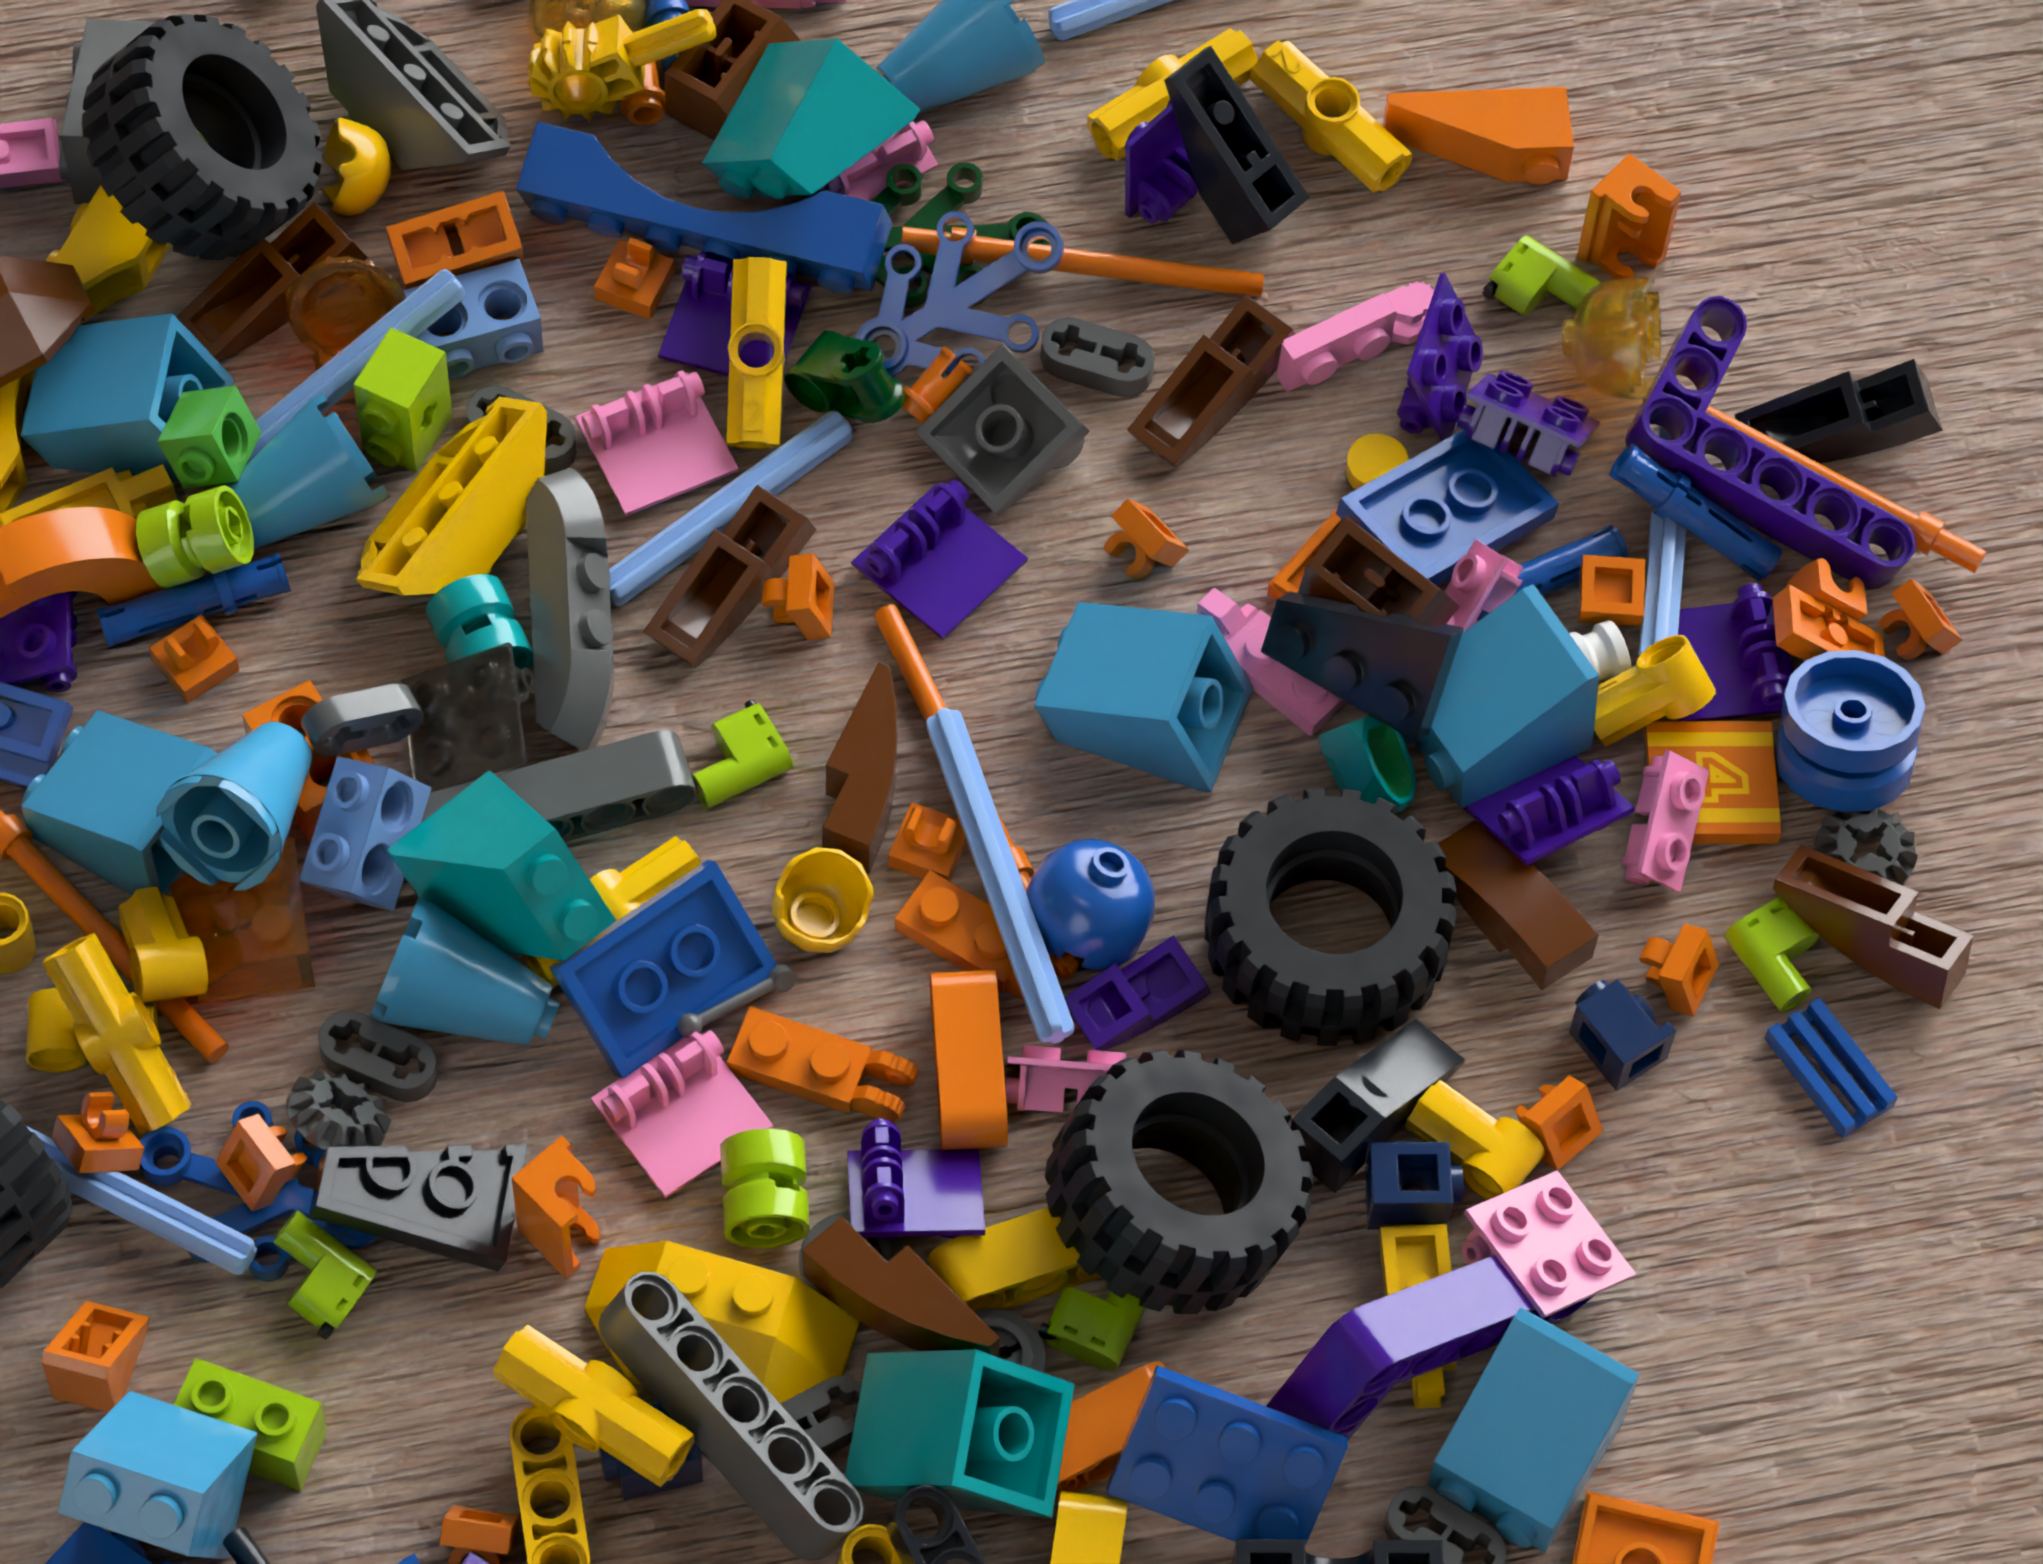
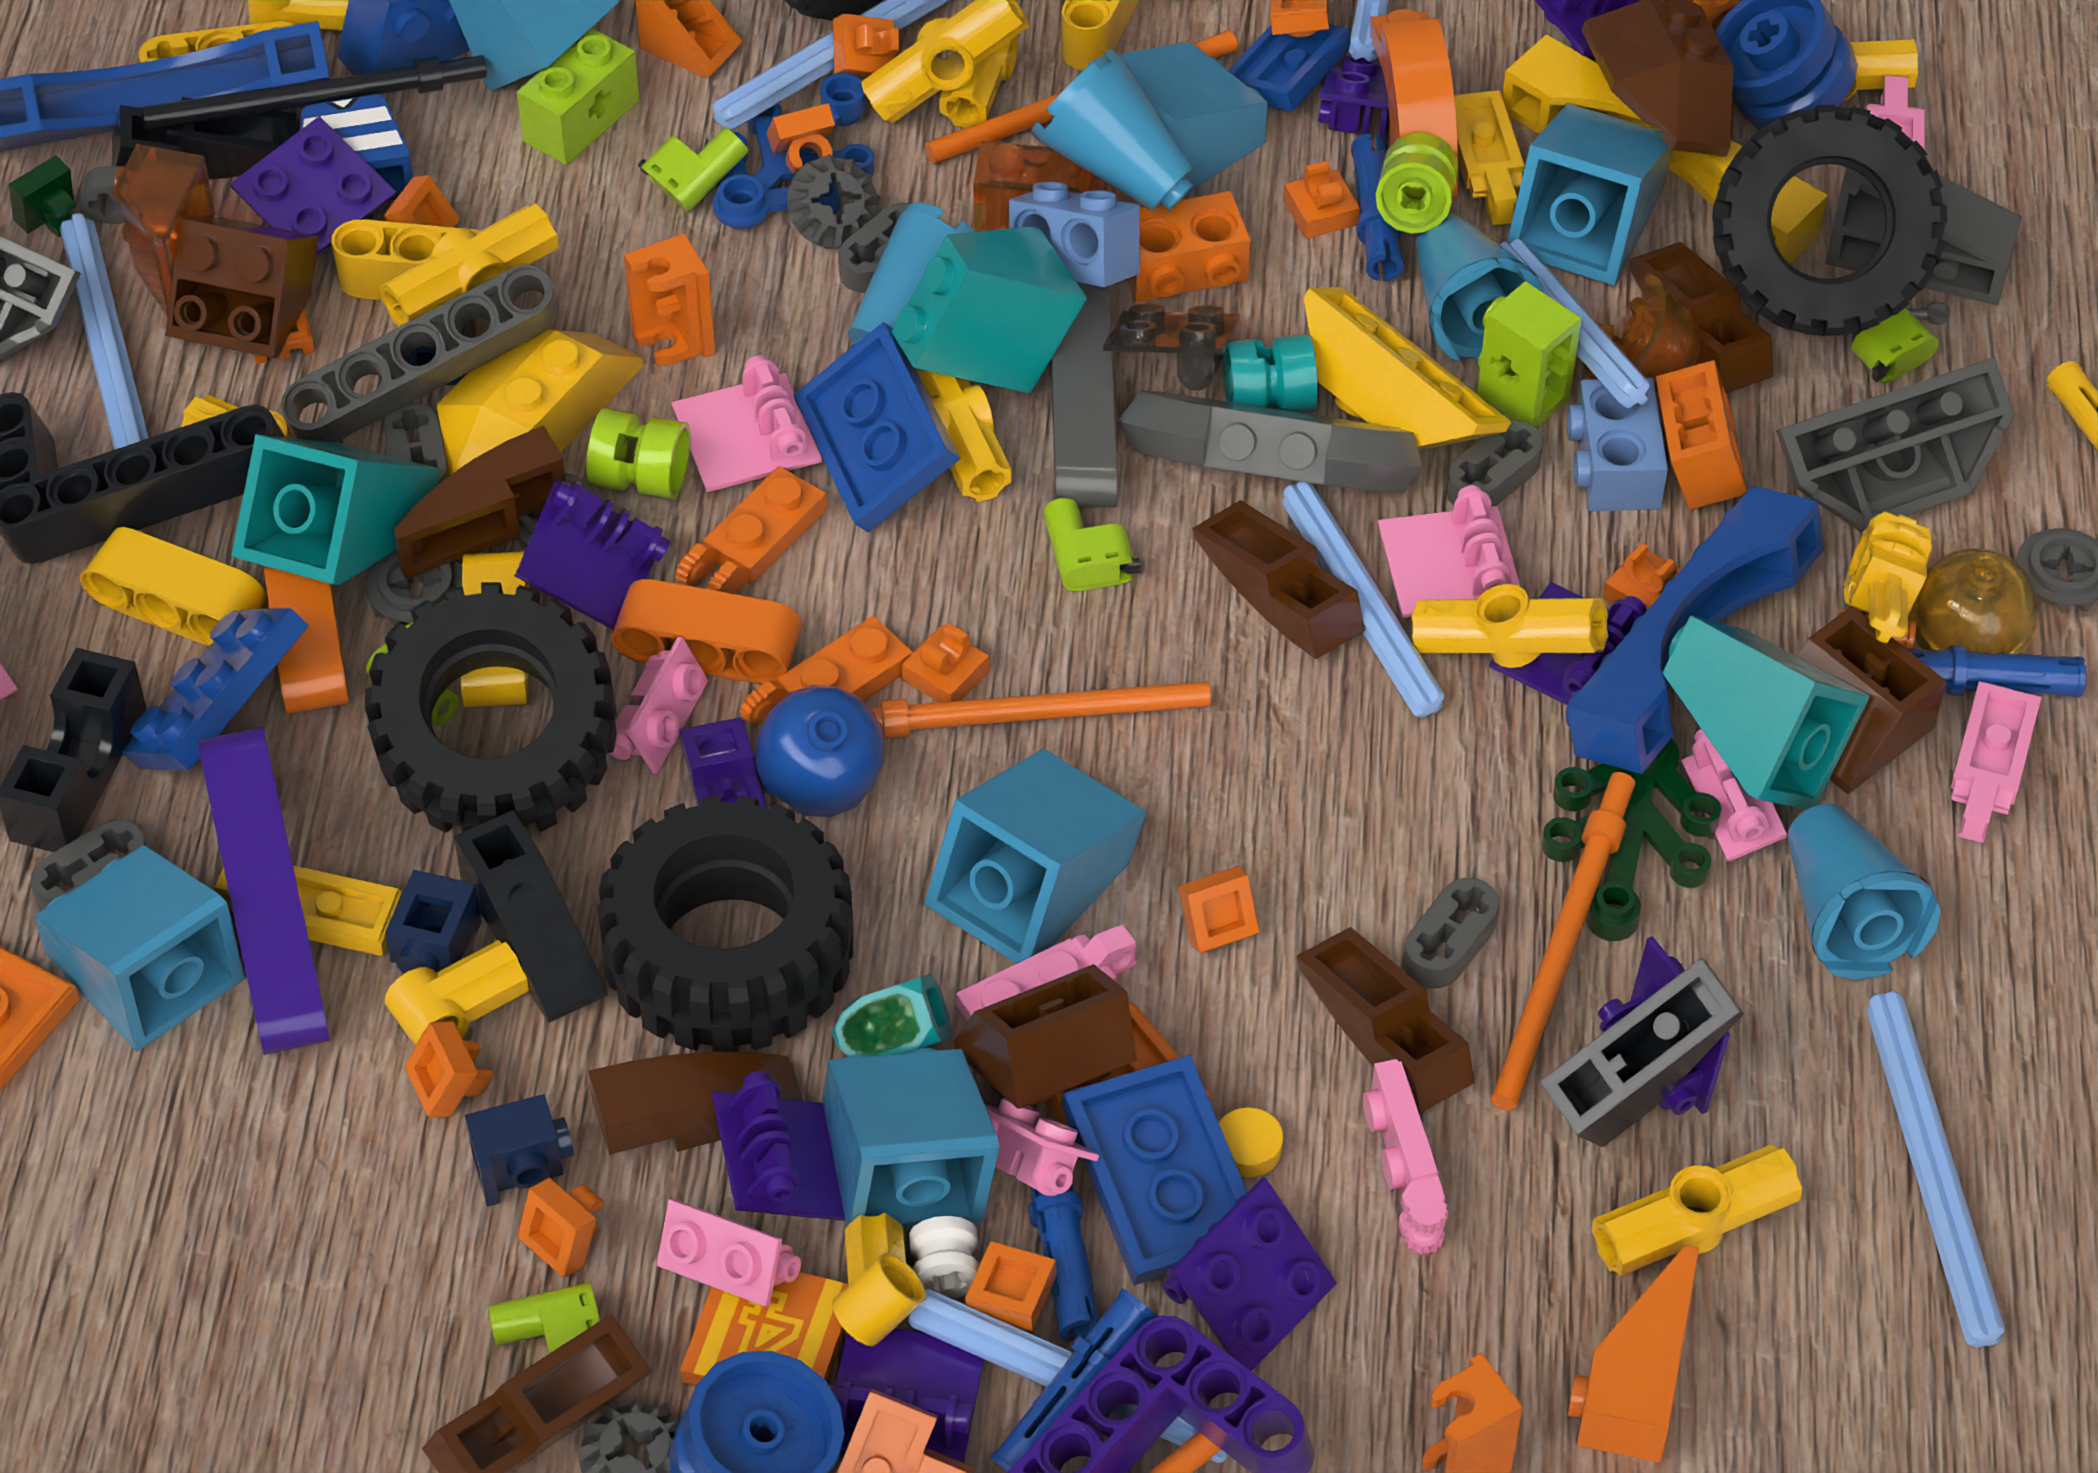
camera: 110 degrees right, 10 degrees down
(162, 955) = (1007, 105): yellow piece -> none
(209, 437) = (1539, 197): bright green brick -> none
(362, 167) = (1813, 382): yellow hair -> none
(362, 719) = (1185, 249): dark grey beam -> none
(430, 1200) = (733, 223): wing -> none
(780, 978) = (846, 522): dark grey hinge -> none
(803, 597) = (1234, 623): orange tile -> none
(821, 900) = (904, 557): yellow hair -> none
(846, 378) = (1472, 704): dark green piece -> none
(864, 773) = (1032, 625): reddish brown slope -> none
(931, 389) = (1437, 772): orange pin -> none
(940, 559) = (1250, 743): dark purple hinge -> none
(949, 304) = (1510, 754): blue plant -> none
(1000, 876) = (876, 679): light blue axle -> none
(1003, 431) = (1376, 822): dark grey slope -> none
(1149, 97) = (1769, 1085): yellow piece -> none
(1366, 659) = (976, 989): black wing -> none
(1440, 366) = (1344, 1202): dark purple hinge -> none
(1532, 273) = (1440, 1347): lime piece -> none
(1546, 1244) = (309, 997): bright pink hinge -> none
(1615, 336) = (1335, 1386): clear yellow cylinder -> none
(1848, 1052) = (406, 1326): blue tile -> none

